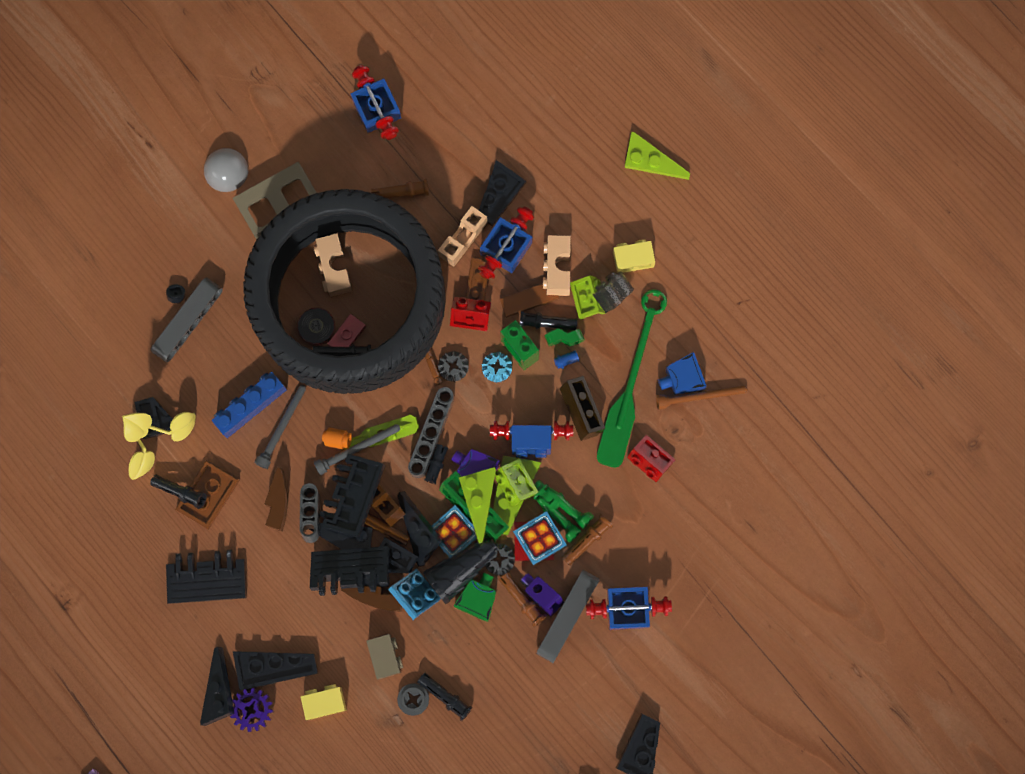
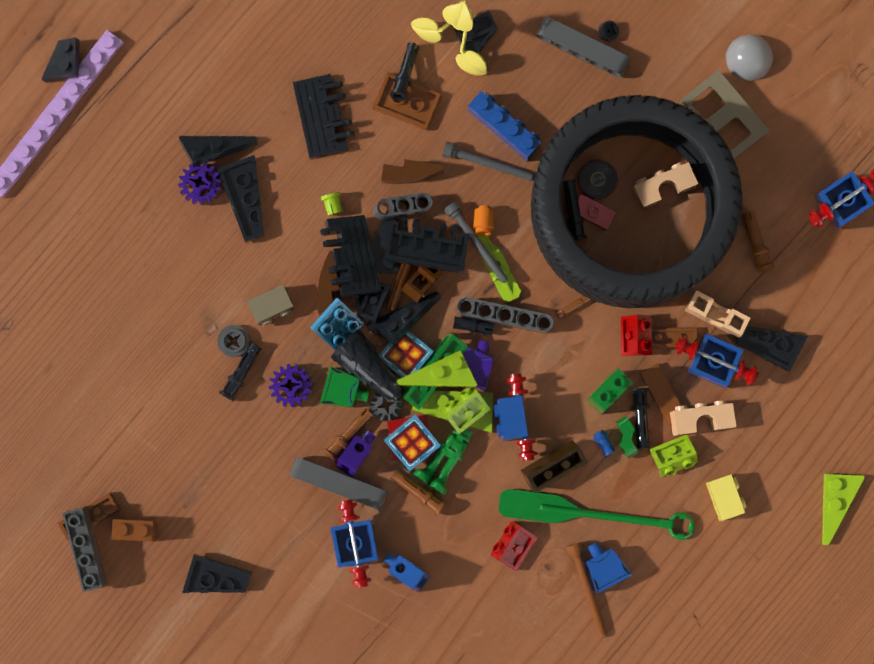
camera: 80 degrees right, 5 degrees up
(294, 581) = (332, 203): none -> lime bush
(323, 703) = (217, 253): light yellow brick -> none
(455, 374) = (582, 335): dark grey gear -> none
(457, 648) = (289, 372): none -> dark purple gear
(503, 373) = (577, 378): medium azure gear -> none
(612, 291) = (683, 480): clear smoke brick -> none
(667, 556) = (412, 576): none -> blue torso

